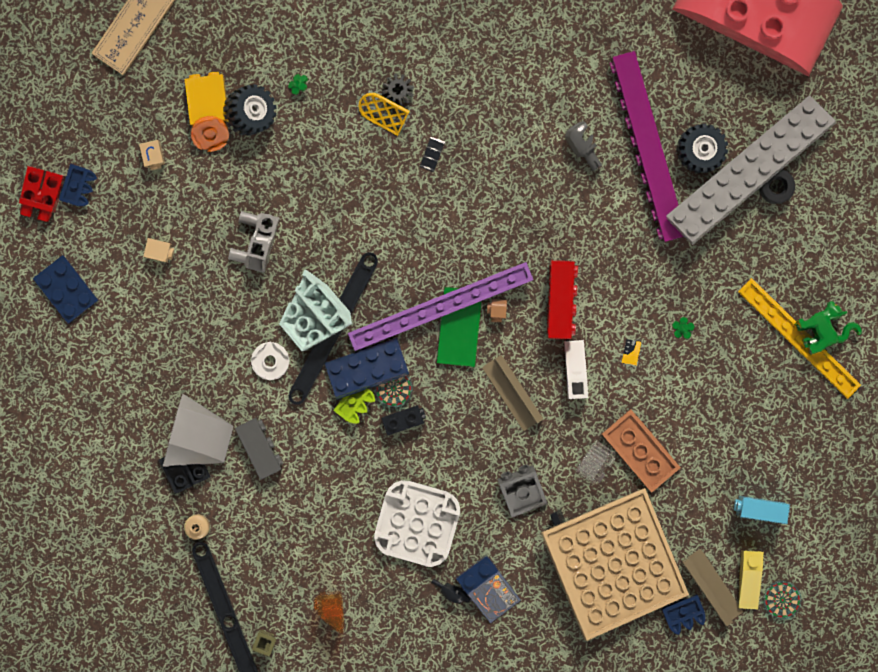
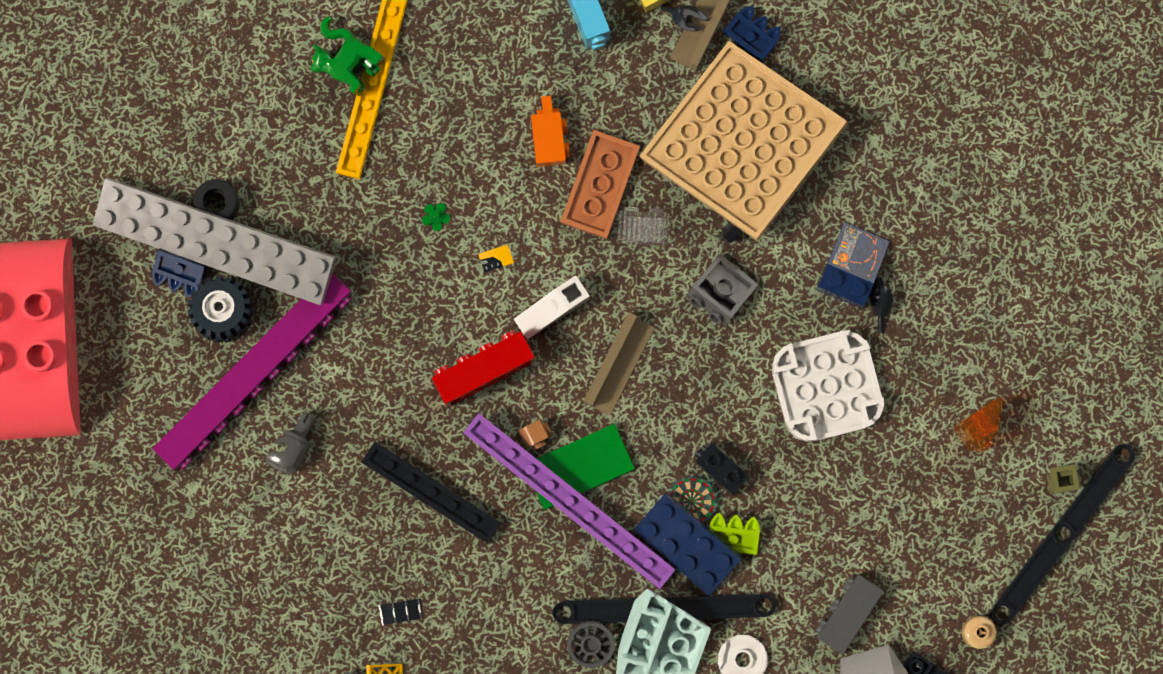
camera: 120 degrees left, 5 degrees down
(338, 266) = (590, 644): none -> dark grey wheel
(499, 219) = (431, 492): none -> black plate
(696, 435) = (548, 135): none -> orange hinge
(724, 575) = (683, 16): none -> black hand
(744, 135) = (178, 271): none -> dark blue plate

